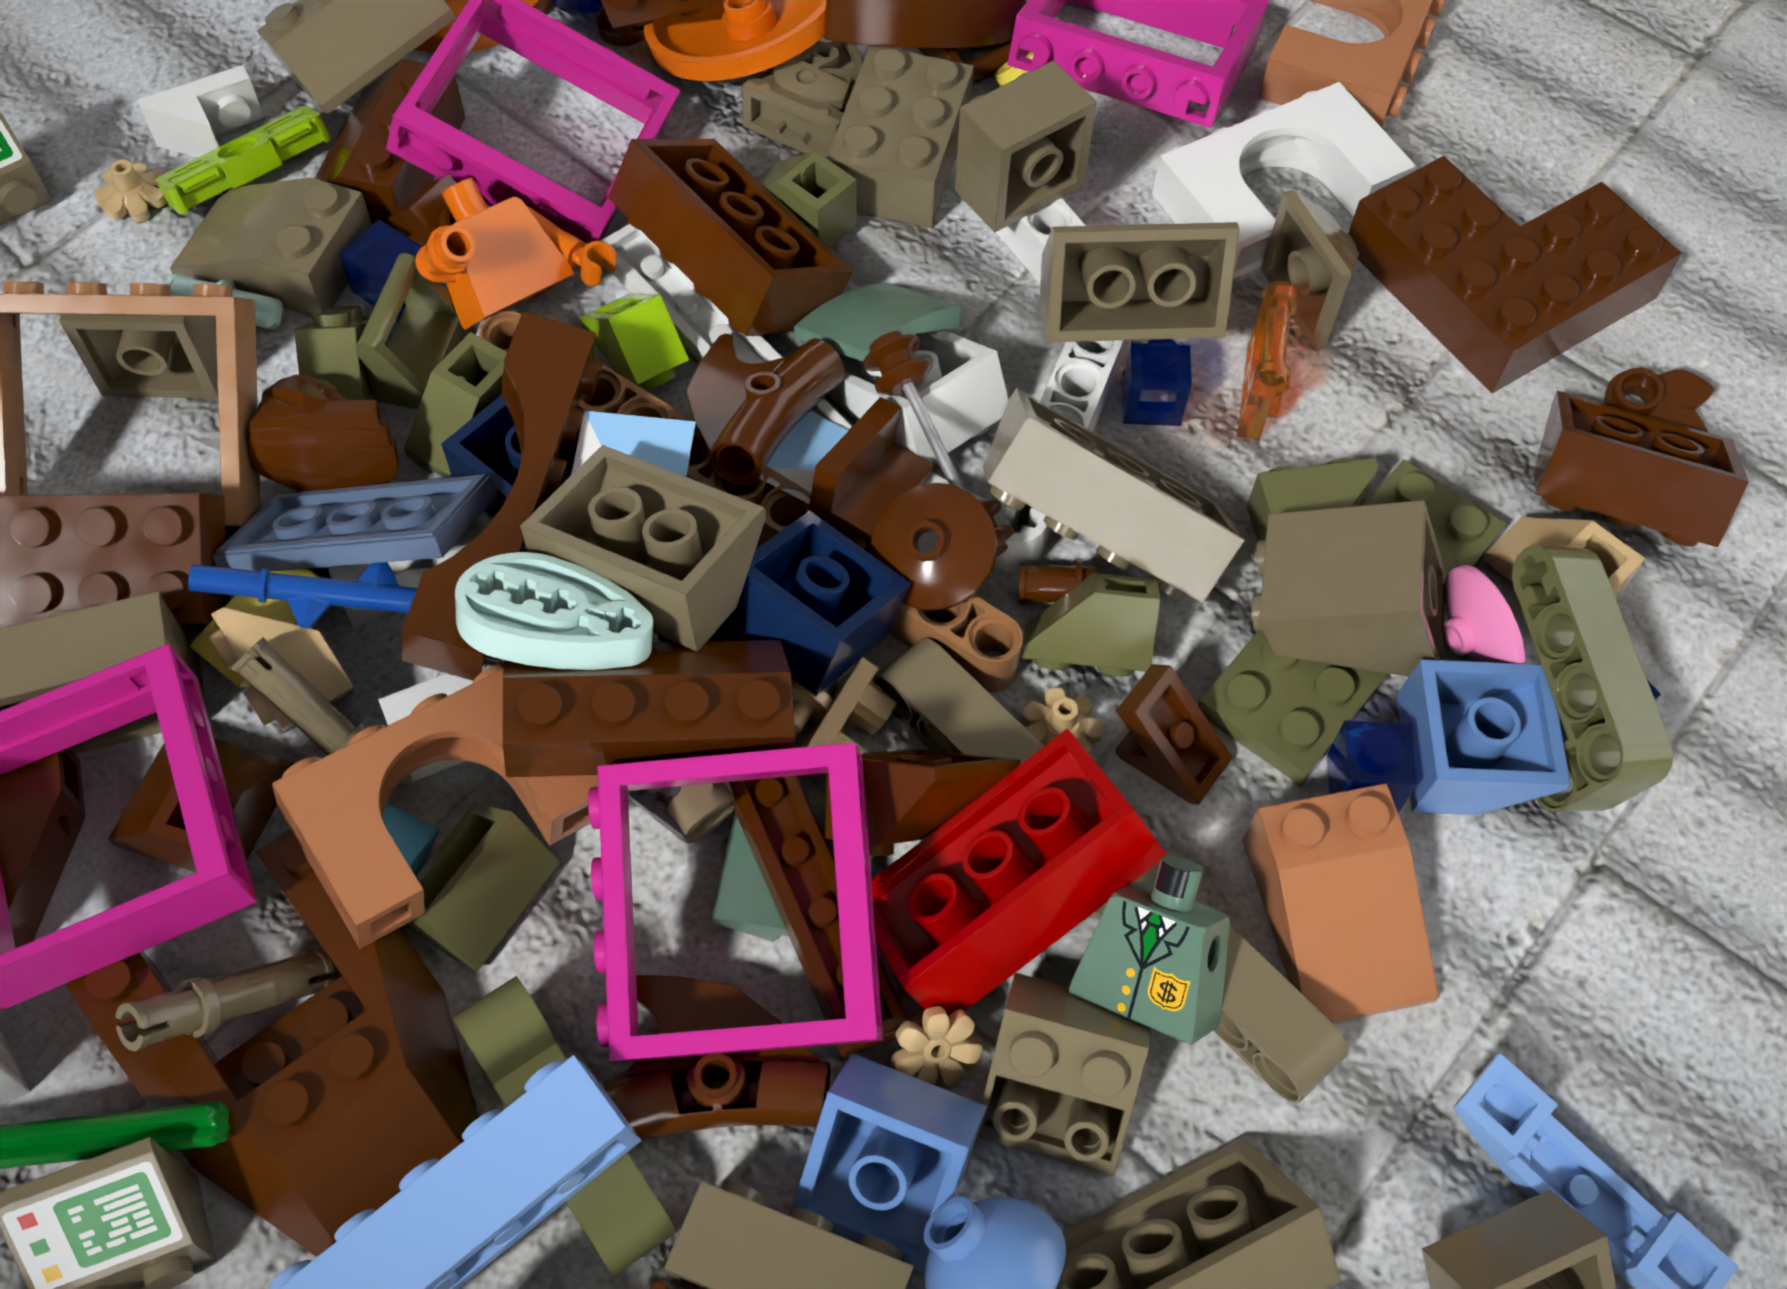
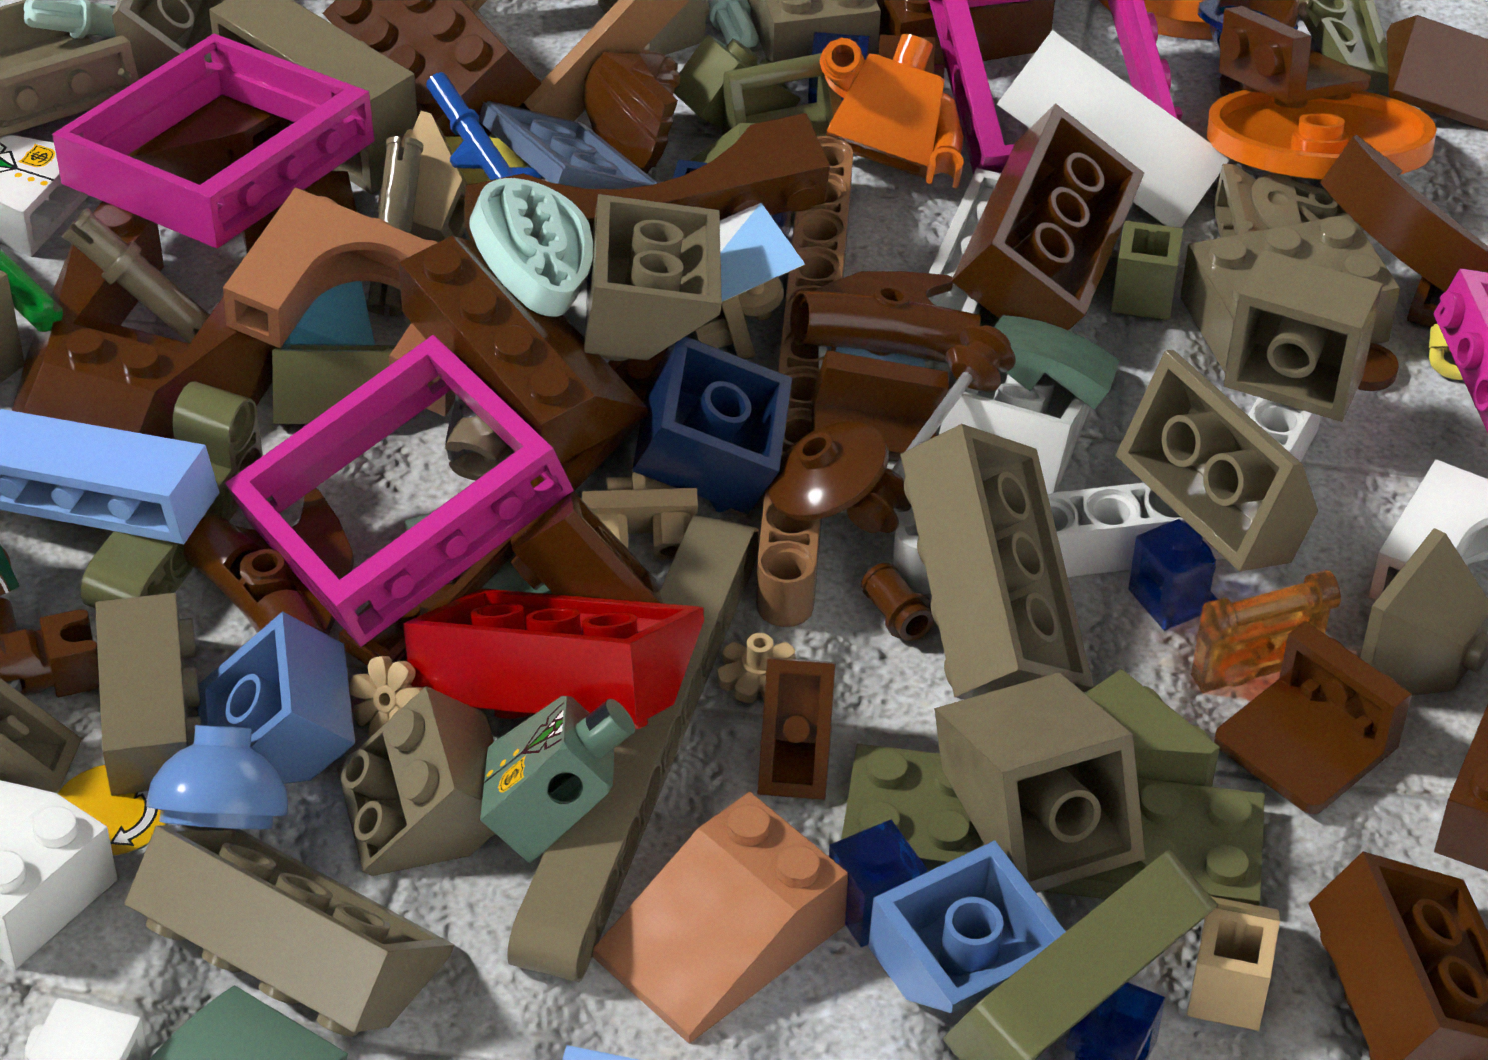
camera: 60 degrees right, 15 degrees down
(597, 122) = (1174, 158): none -> white sticker
(637, 338) = (902, 233): lime slope -> none
(1098, 623) = (870, 636): olive slope -> none
(1356, 386) = (1318, 723): none -> reddish brown bracket
(1480, 619) = (1094, 877): bright pink dish -> none

